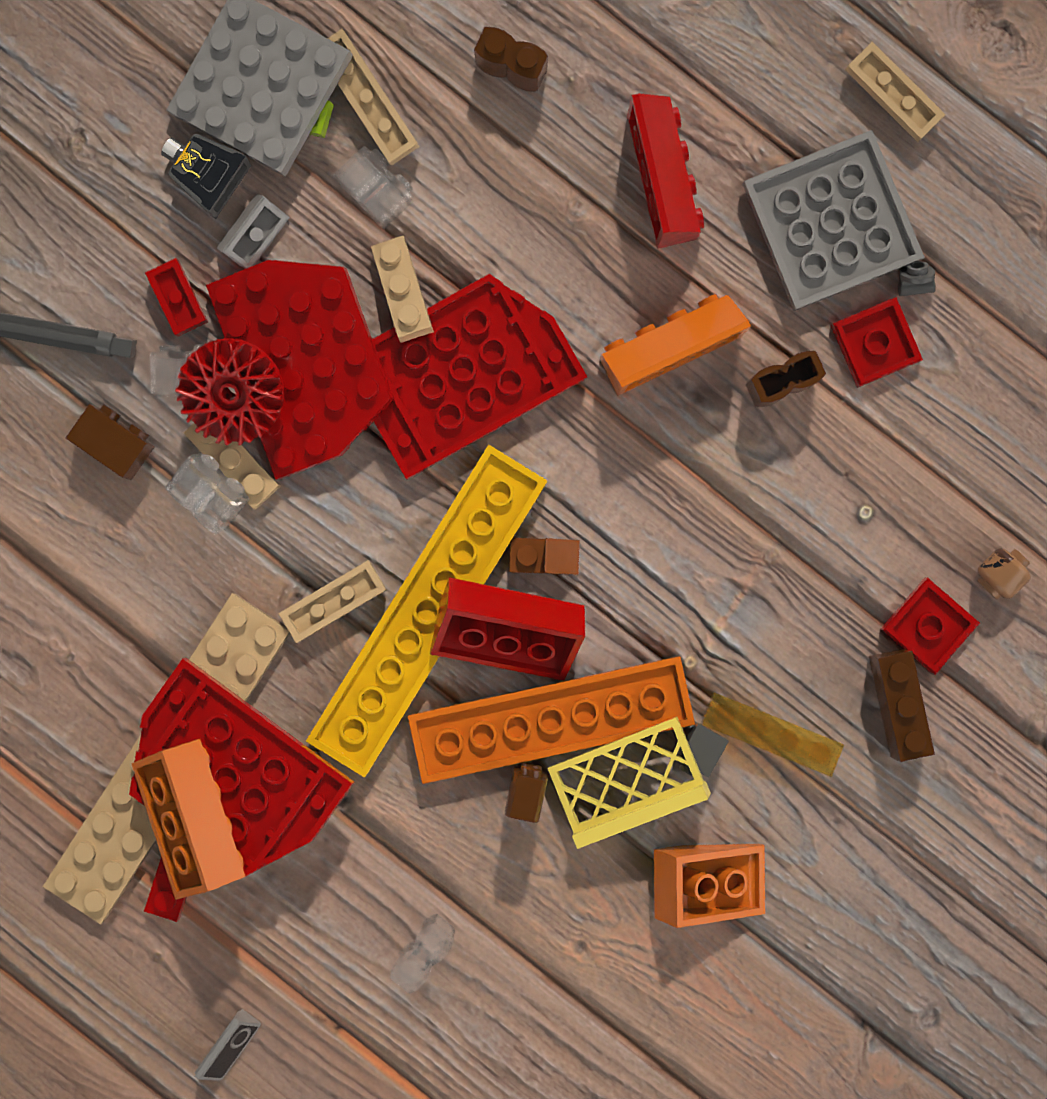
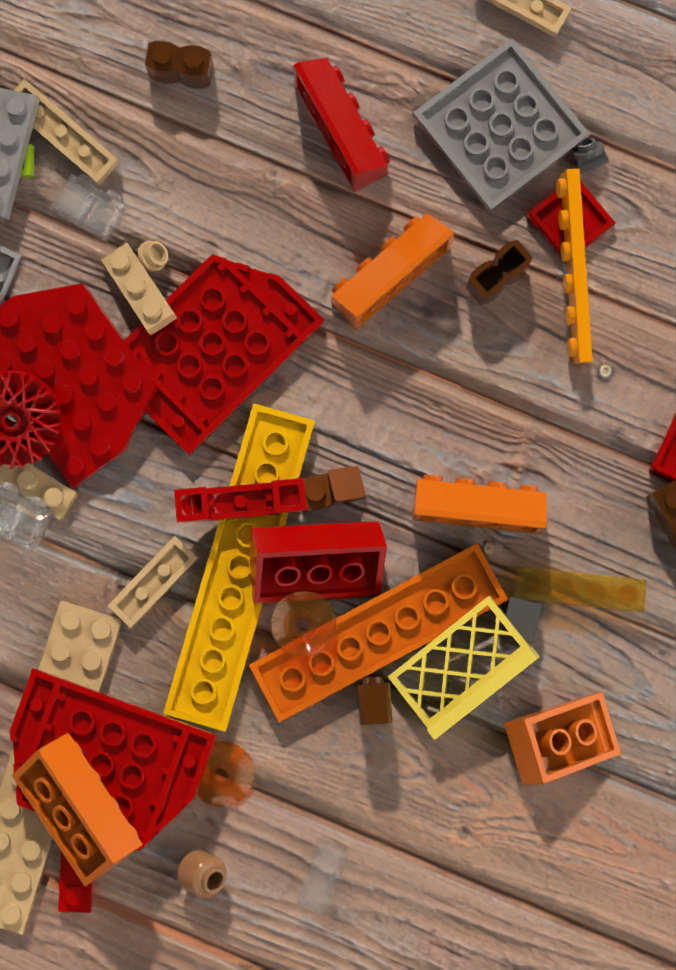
camera: 10 degrees left, 5 degrees down
(300, 916) = (202, 874): none -> medium nougat head
(368, 825) = (239, 780): none -> clear orange dish
(426, 257) = (152, 255): none -> tan plate
(445, 544) = (240, 501): none -> red slope
(480, 709) = (303, 606): none -> clear orange dish
(694, 618) = (480, 506): none -> orange slope
(870, 382) = (573, 253): none -> light orange plate

